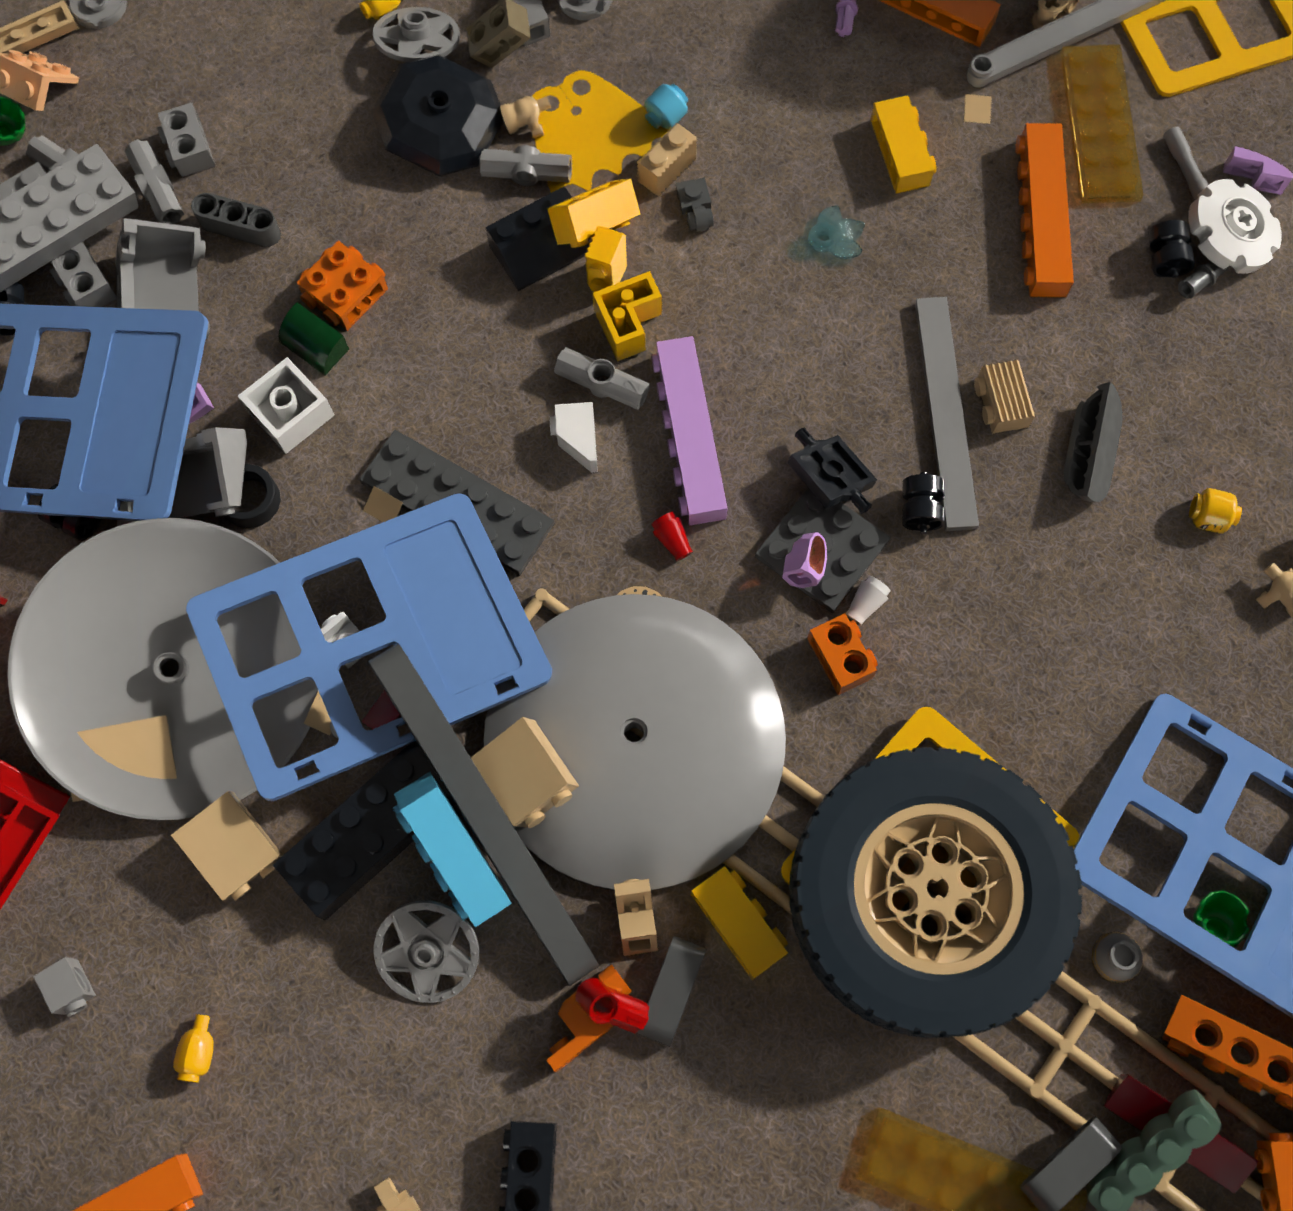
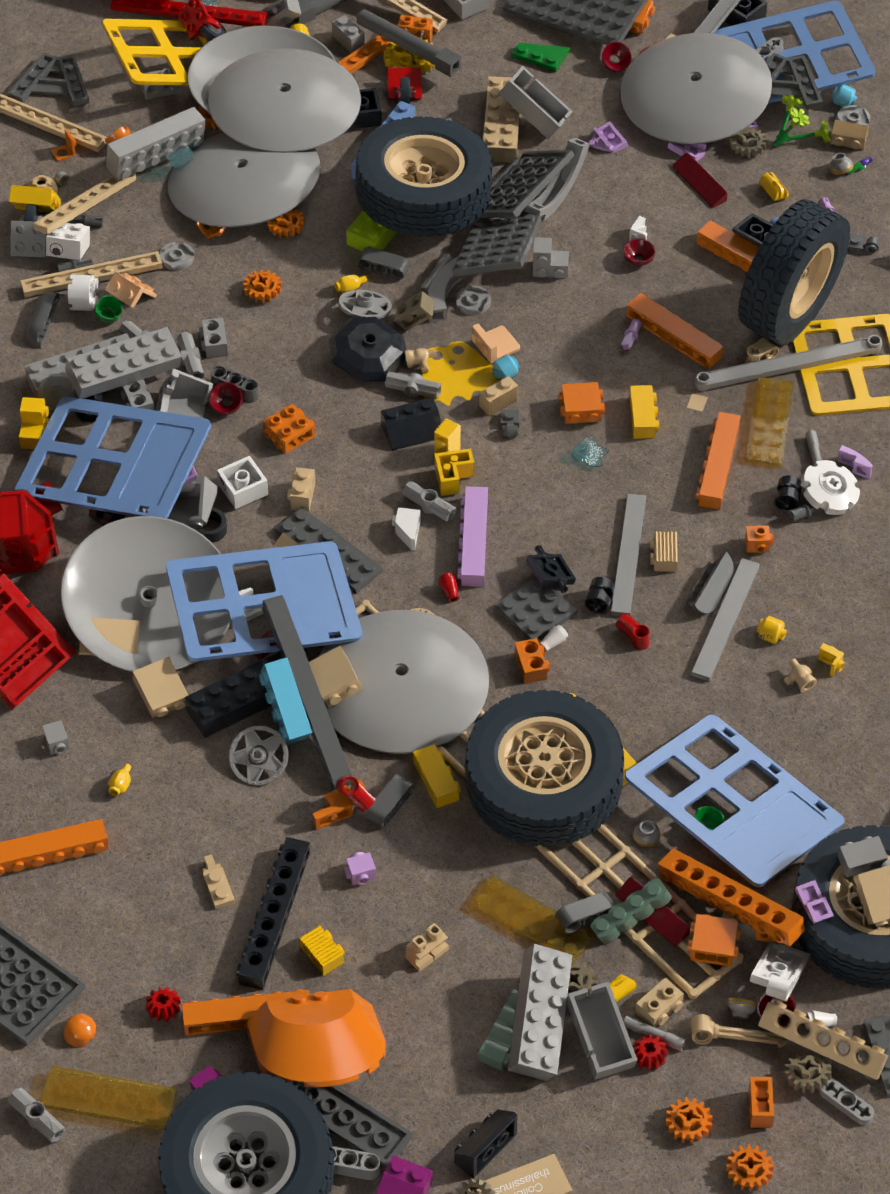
camera: 10 degrees right, 20 degrees down
(213, 246) = (224, 390): none -> dark red piece
(245, 31) = (262, 286): none -> orange gear
(312, 339) = (265, 452): dark green brick -> none
(318, 716) = (226, 636): tan sticker -> none
(388, 397) = (302, 488): none -> tan brick
(603, 206) = (457, 411): yellow brick -> none
(636, 916) = (379, 759): tan brick -> none
(637, 64) = (494, 342): none -> light nougat bracket
(652, 1149) = (360, 868): none -> lavender brick
(802, 147) = (581, 402): none -> orange brick
(806, 561) = (521, 608): lavender rock -> none
(992, 557) = (634, 631): none -> red piece
(1133, 506) = (725, 620): none -> light grey tile
(1148, 344) = (758, 539): none -> orange brick

